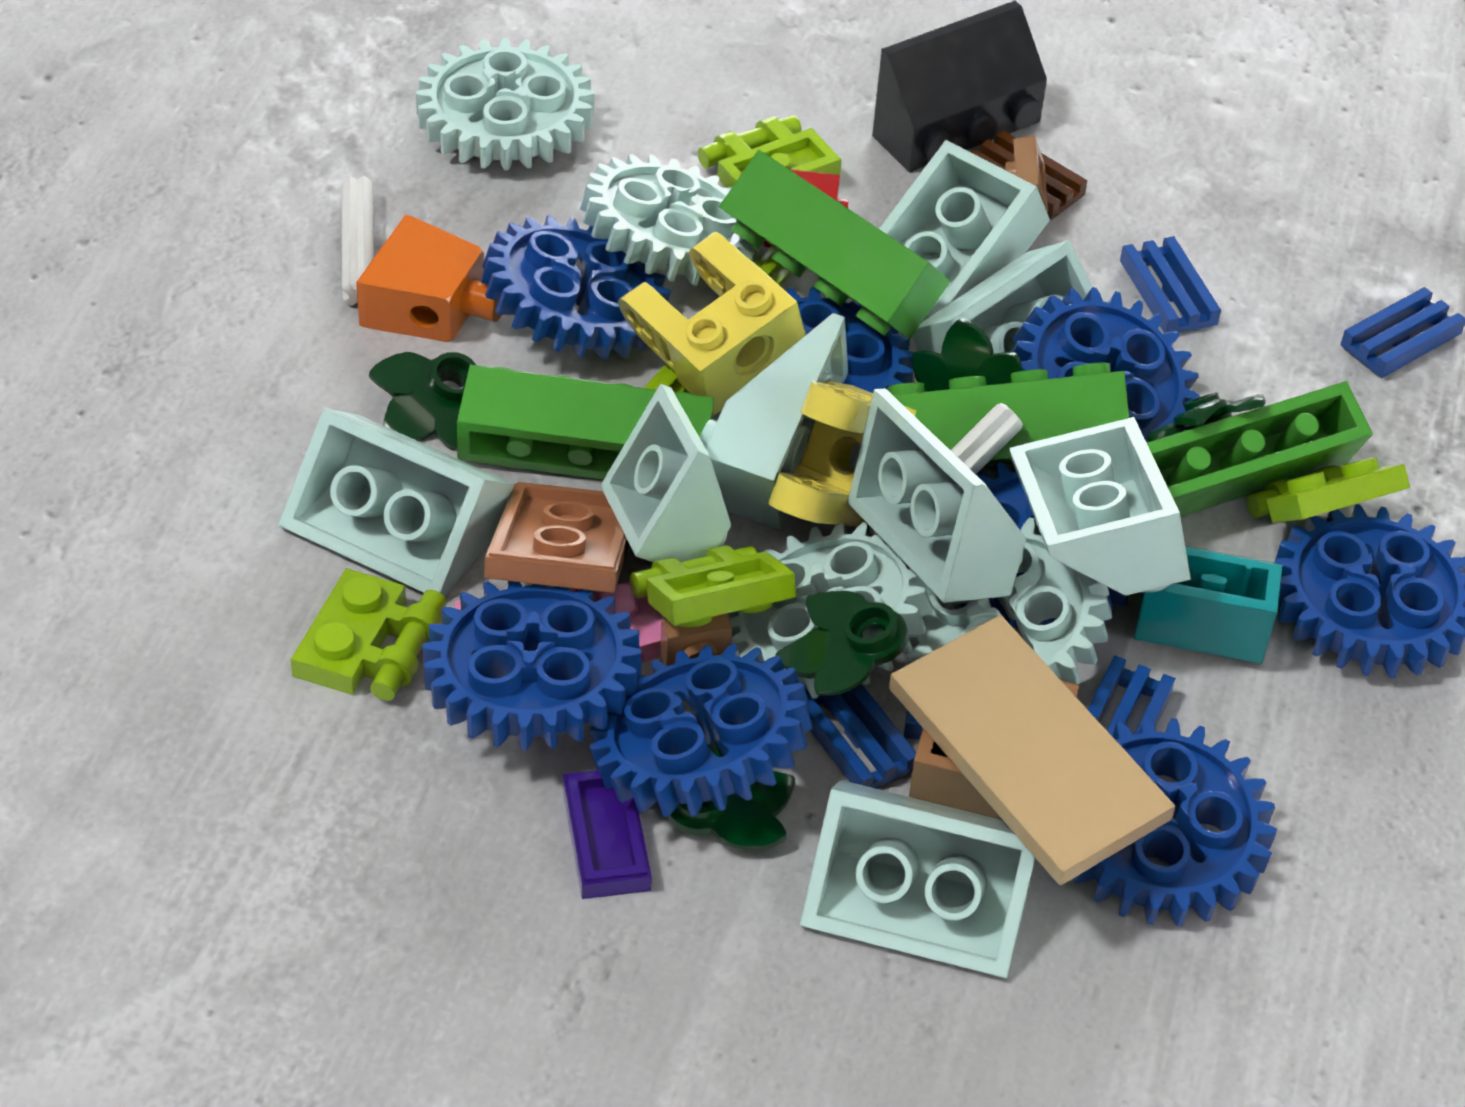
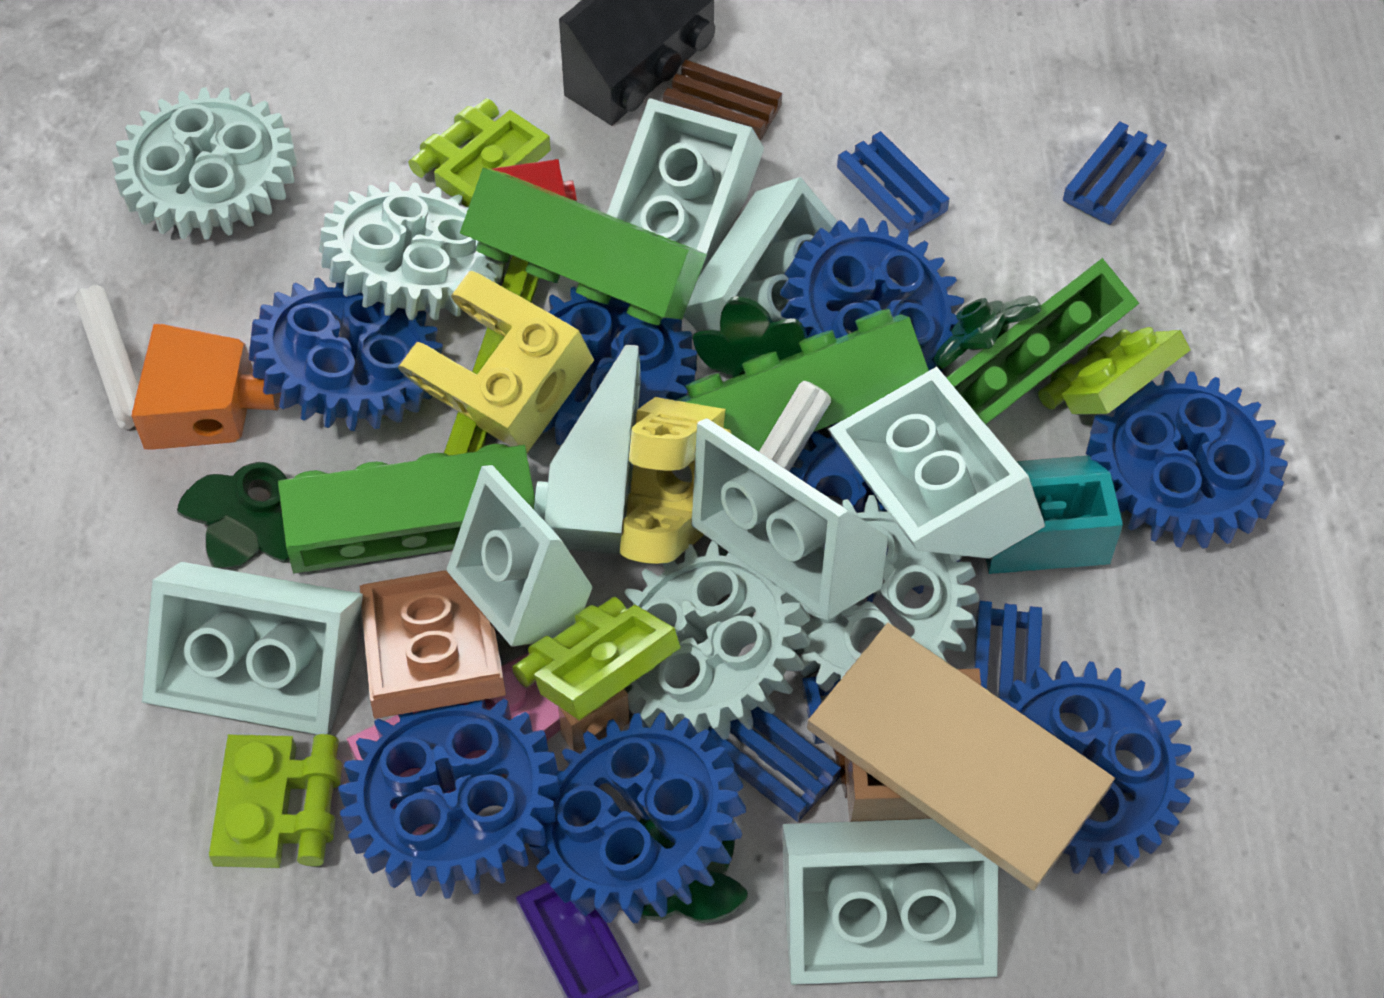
camera: 15 degrees left, 10 degrees up
(847, 641) = (736, 687): dark green plate -> none
(1029, 164) = (729, 100): medium nougat plate -> none

